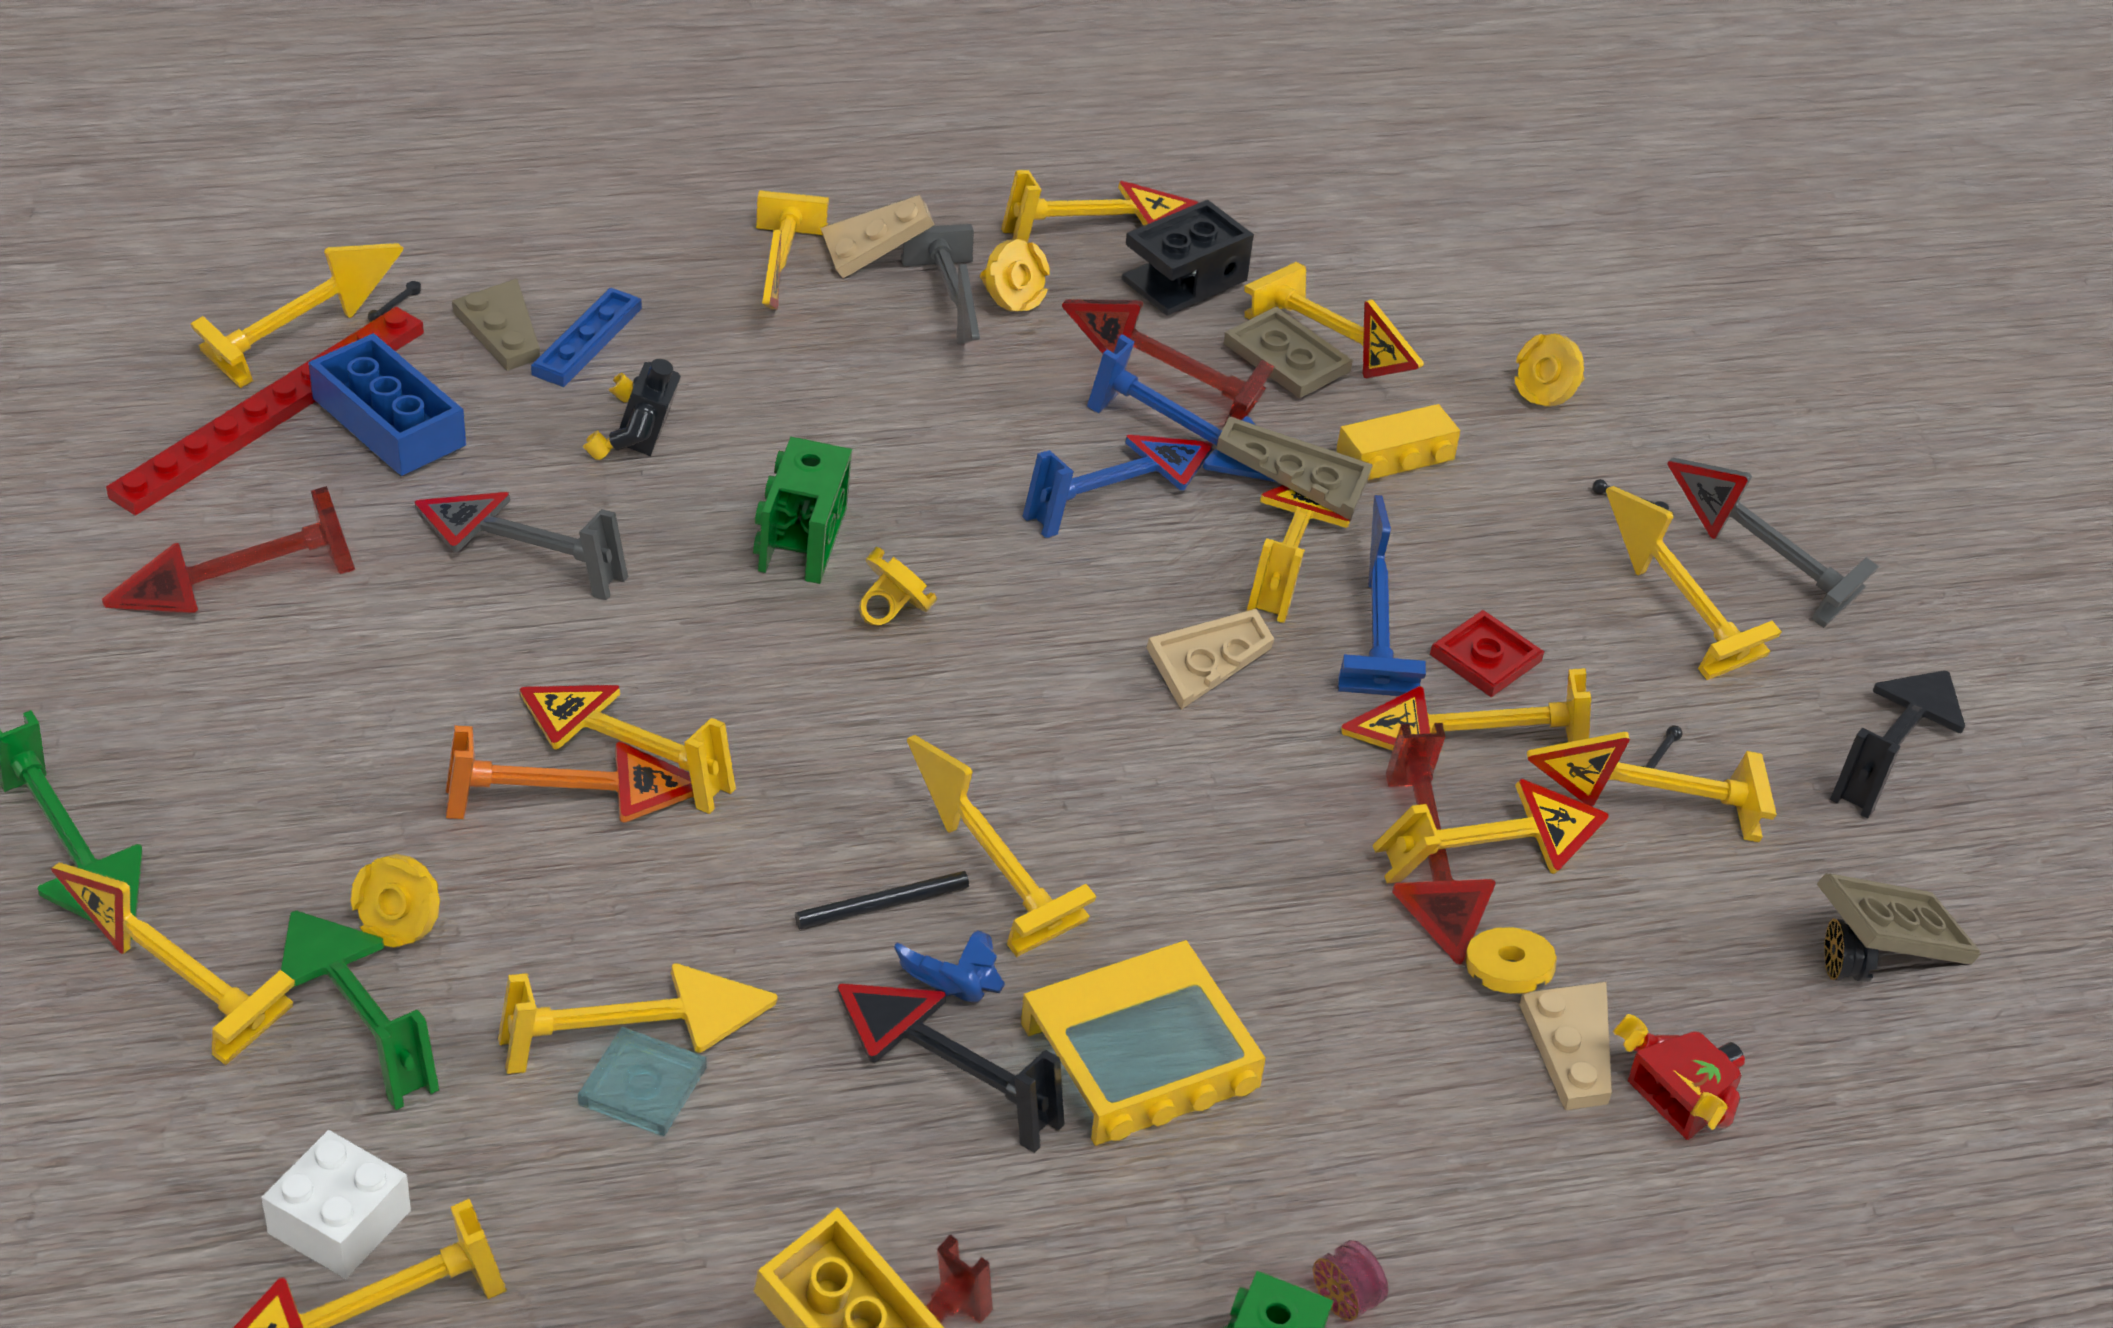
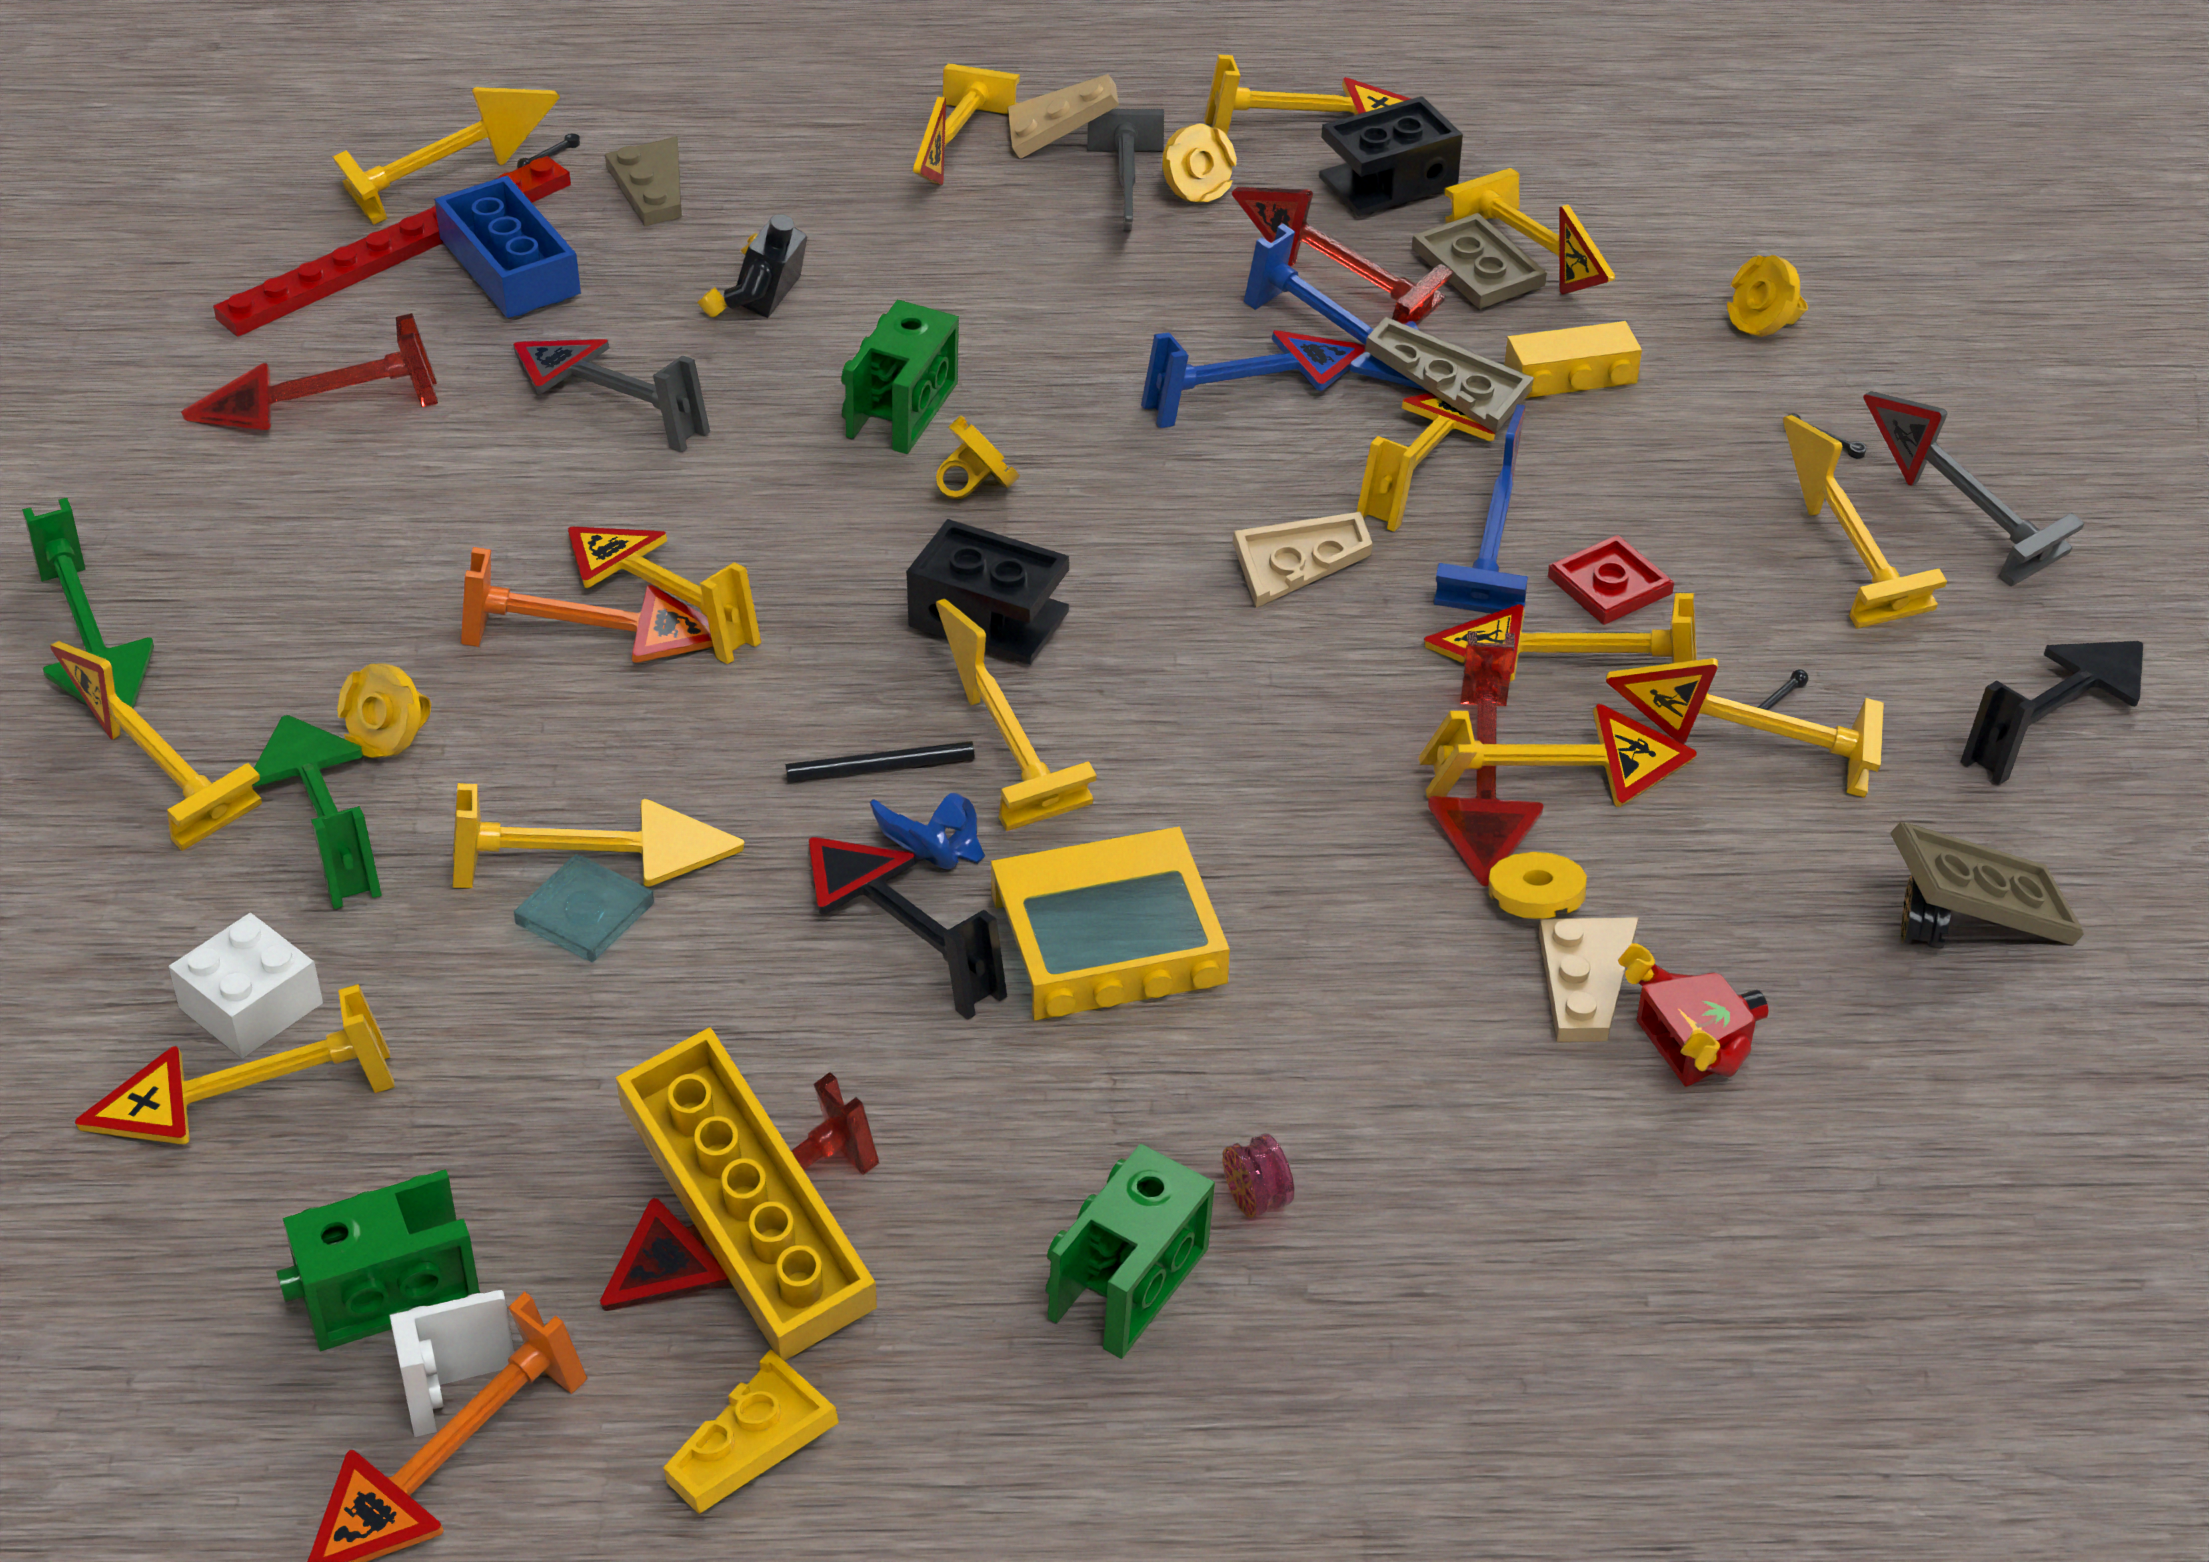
camera: 15 degrees right, 0 degrees up
(586, 337) = (733, 198): blue tile -> none
(948, 708) = (994, 583): none -> black torso

